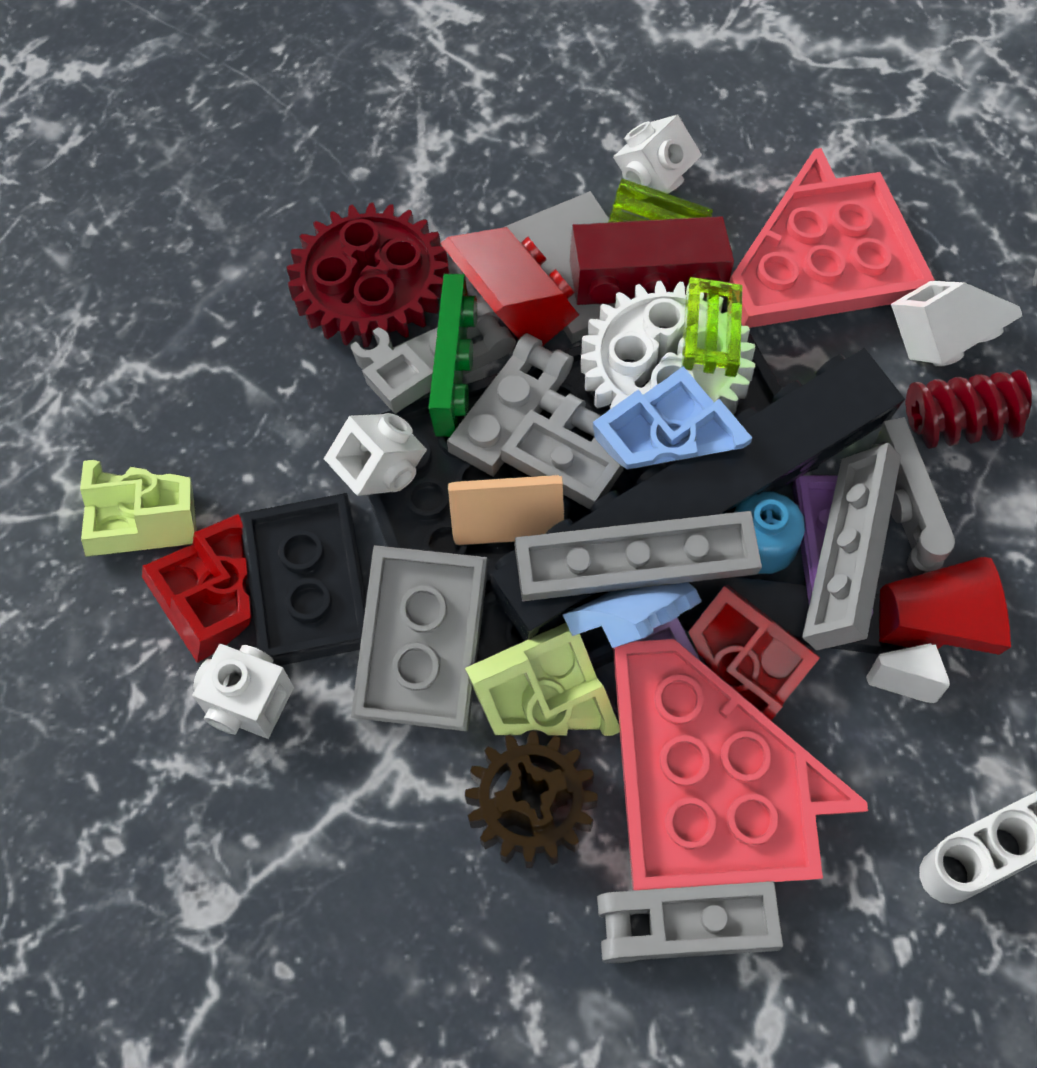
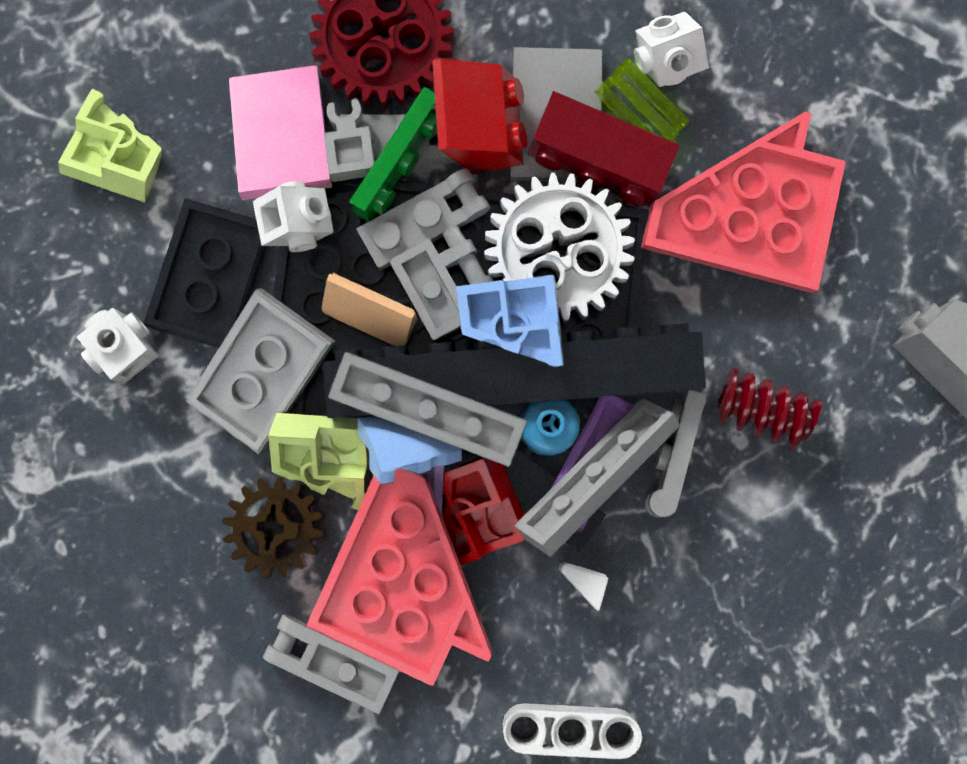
camera: 25 degrees right, 20 degrees up
(204, 587) = (133, 243): red slope -> none
(307, 397) = (278, 130): none -> bright pink tile
(709, 356) = (578, 278): clear neon green tile -> none
(948, 319) = (806, 327): white slope -> none
(948, 607) = (644, 550): red slope -> none

